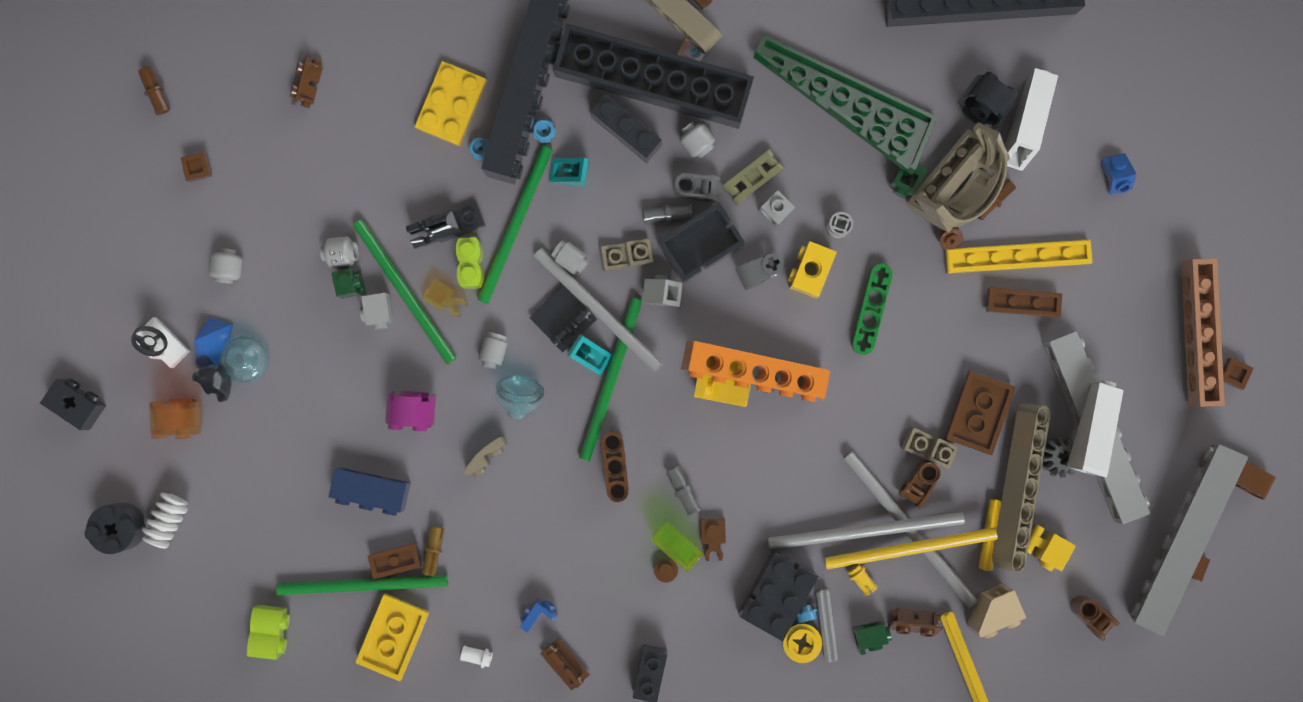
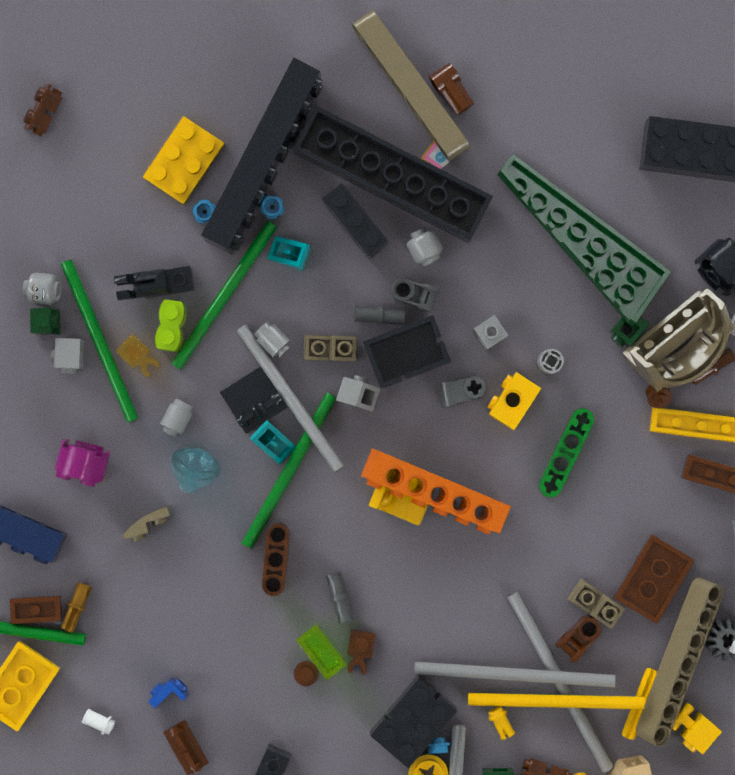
camera: 10 degrees right, 0 degrees up
(753, 177) = (473, 295): olive plate -> none

